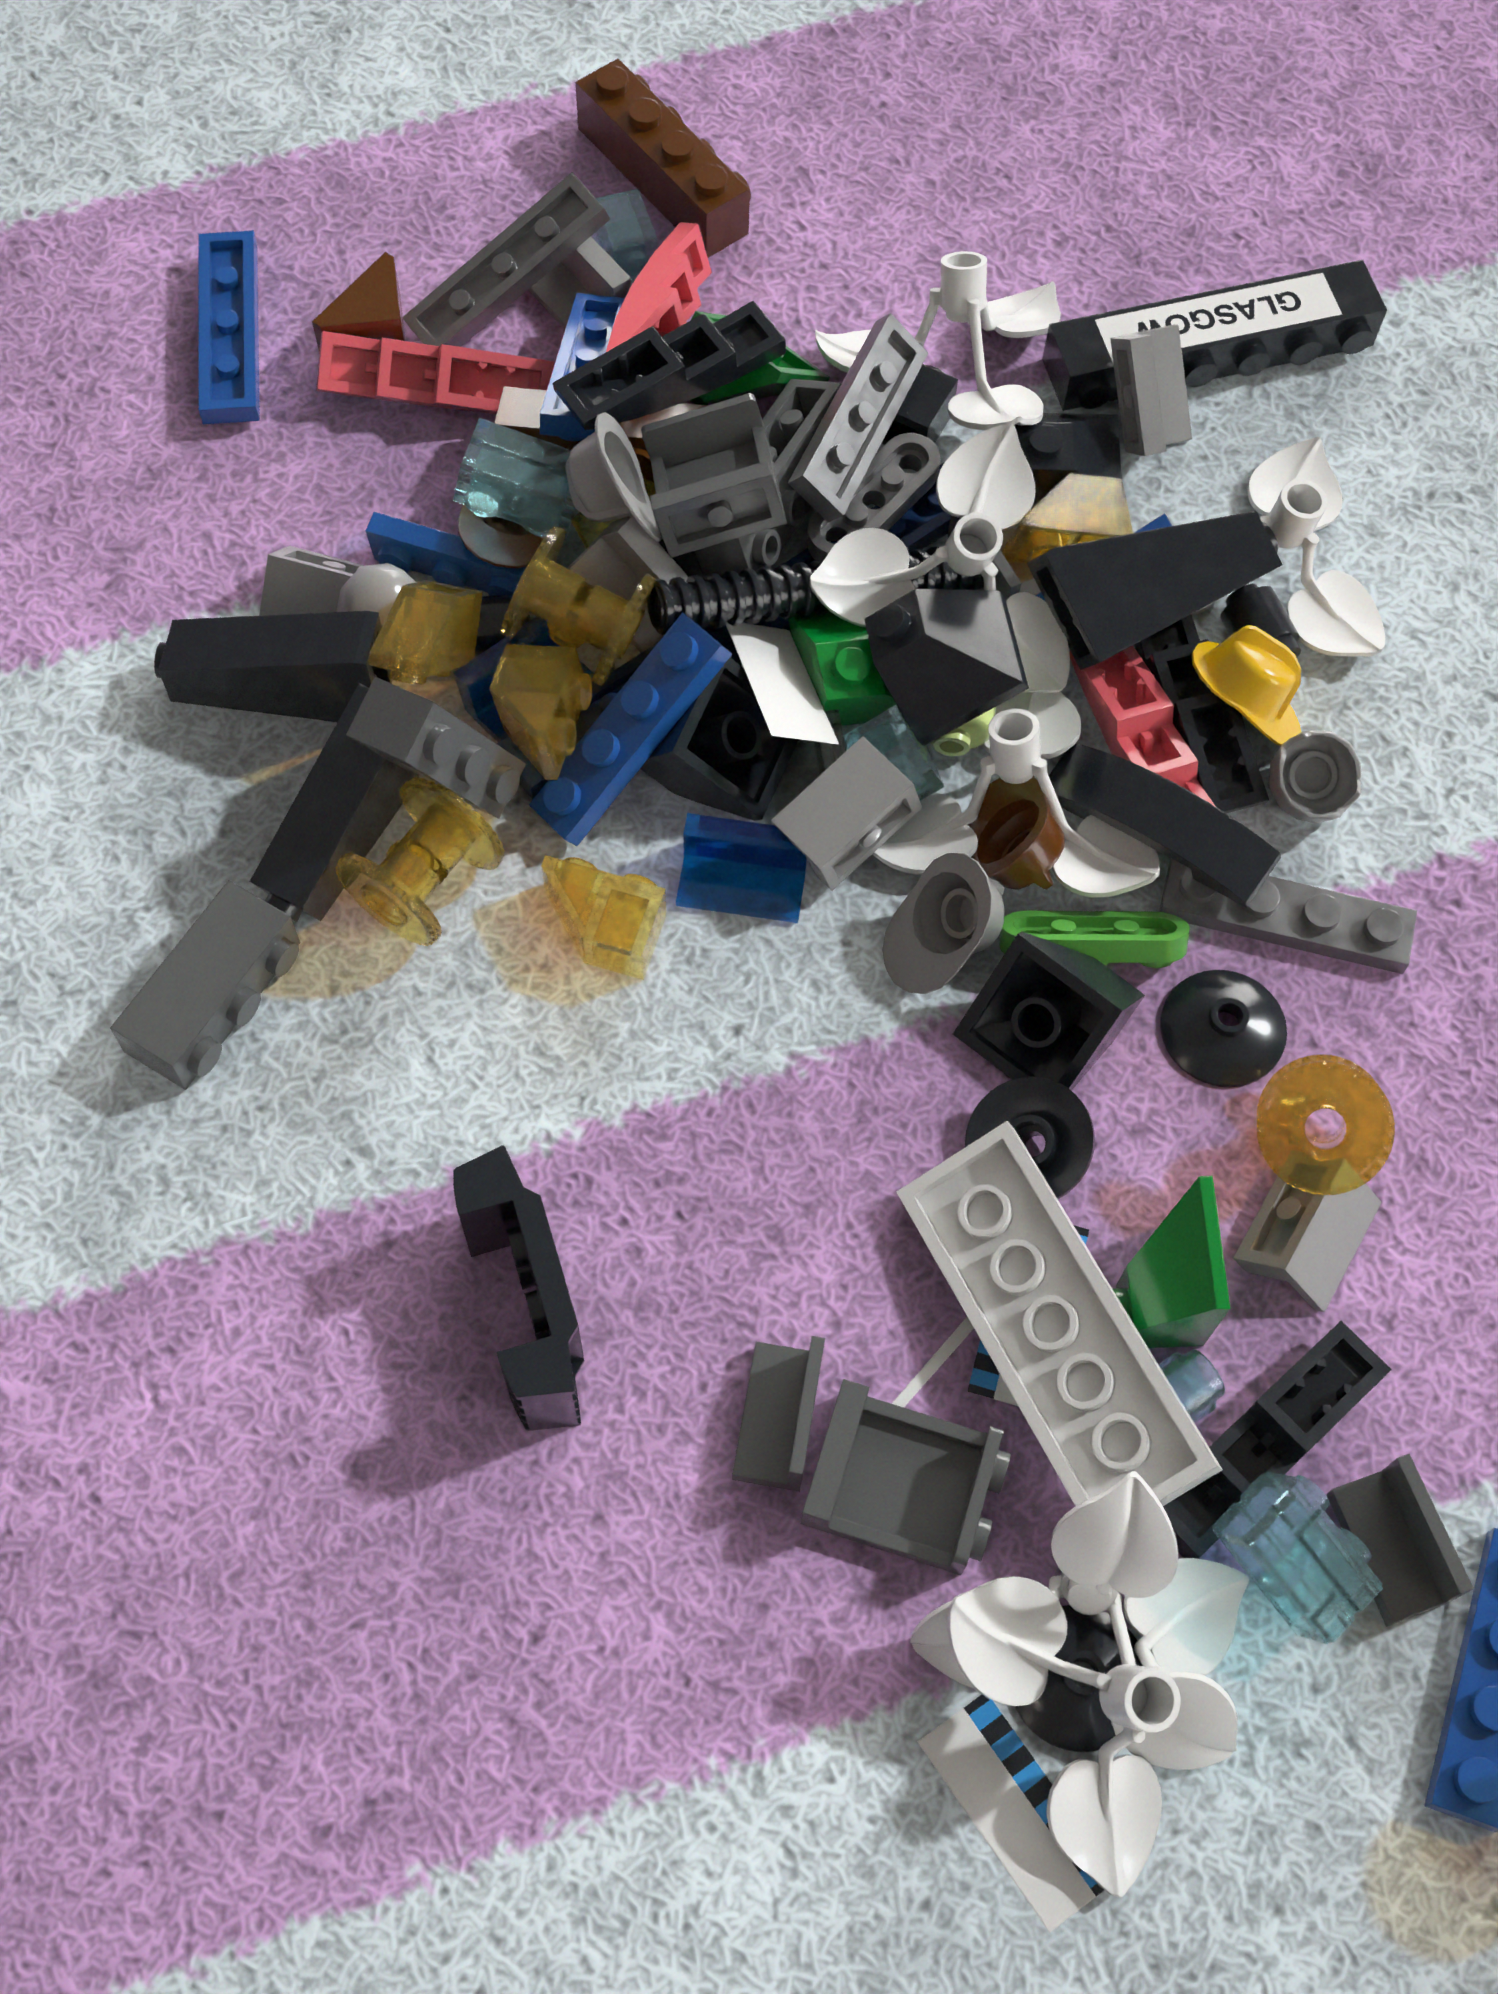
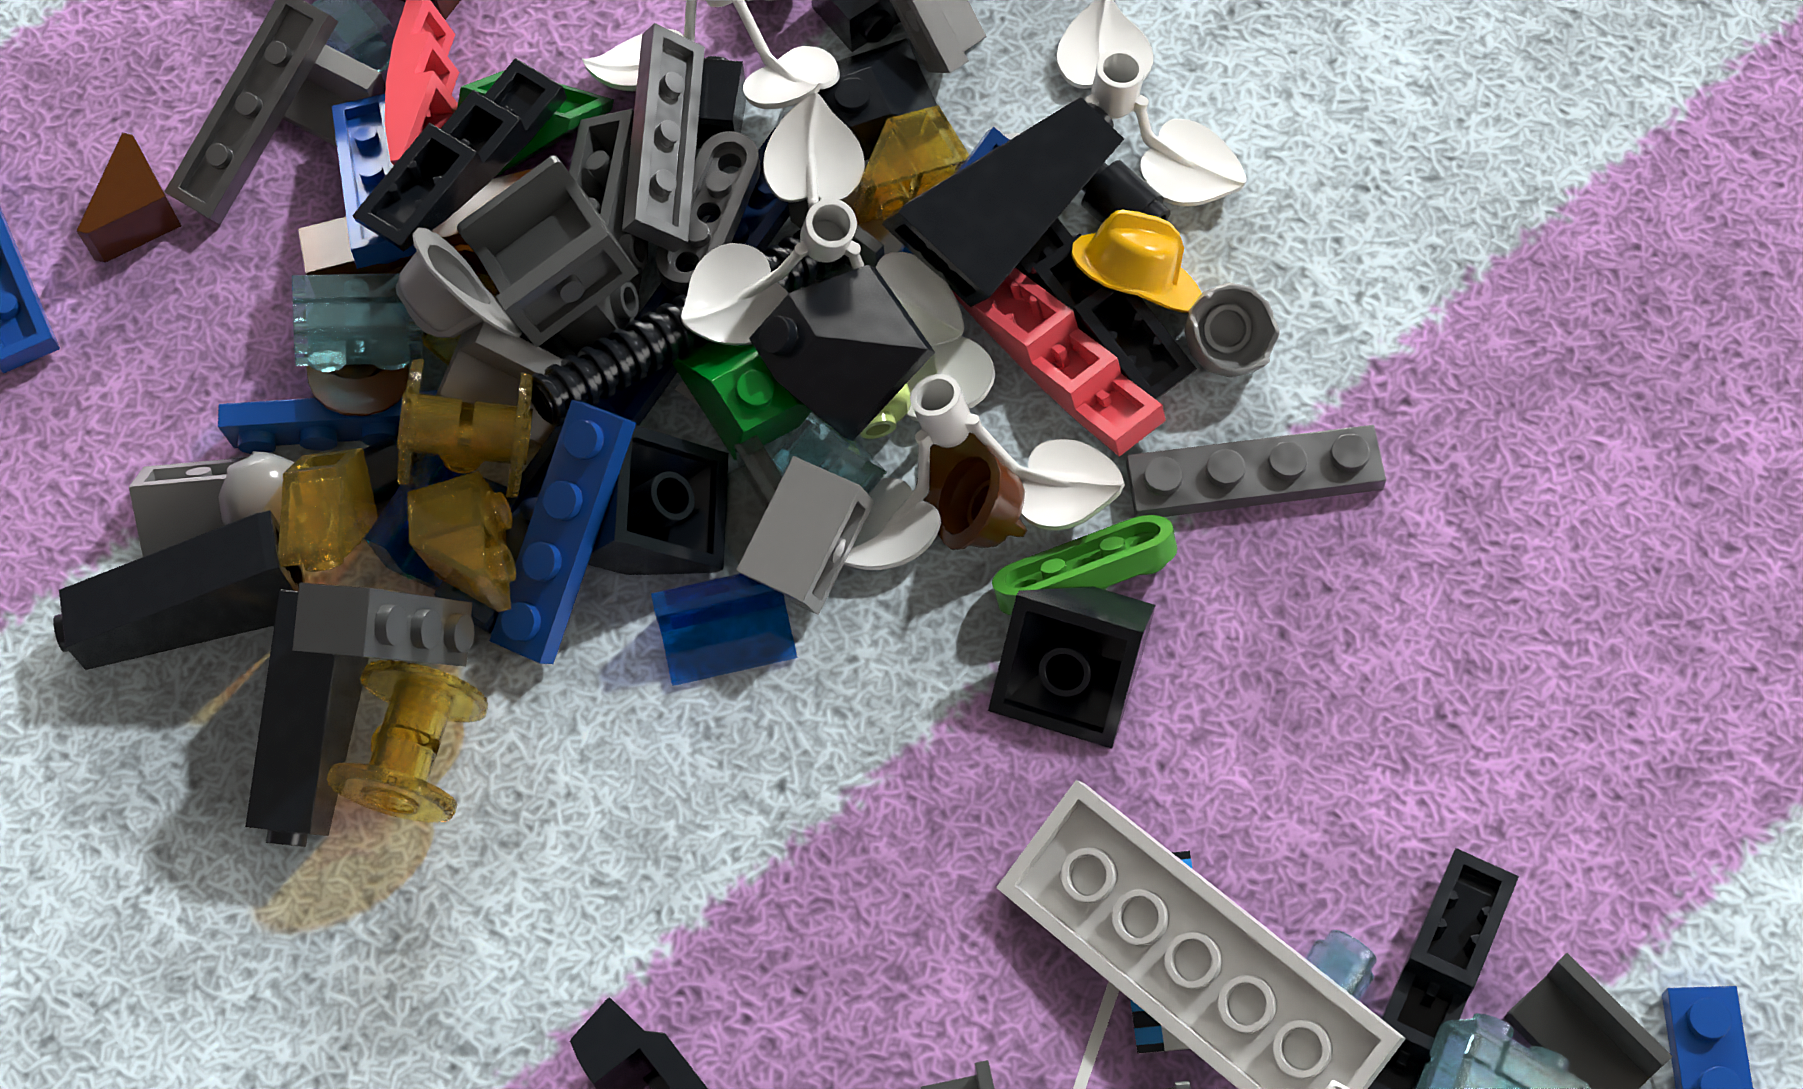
camera: 15 degrees left, 0 degrees up
(207, 985) = (244, 946): dark grey brick -> none
(424, 373) = (211, 241): coral slope -> none
(606, 915) = (611, 723): clear yellow slope -> none
(781, 683) = (692, 431): white sticker -> none
(942, 923) = (938, 609): light grey piece -> none
(1041, 1109) = (1101, 753): black dish -> none
(1166, 818) = (1107, 426): black slope -> none
(1178, 1277) = (1293, 869): green slope -> none
(1216, 1051) = (1233, 631): black dish -> none
(1307, 1238) = (1391, 768): light grey panel -> none
(1332, 1162) = (1391, 699): clear yellow hose -> none

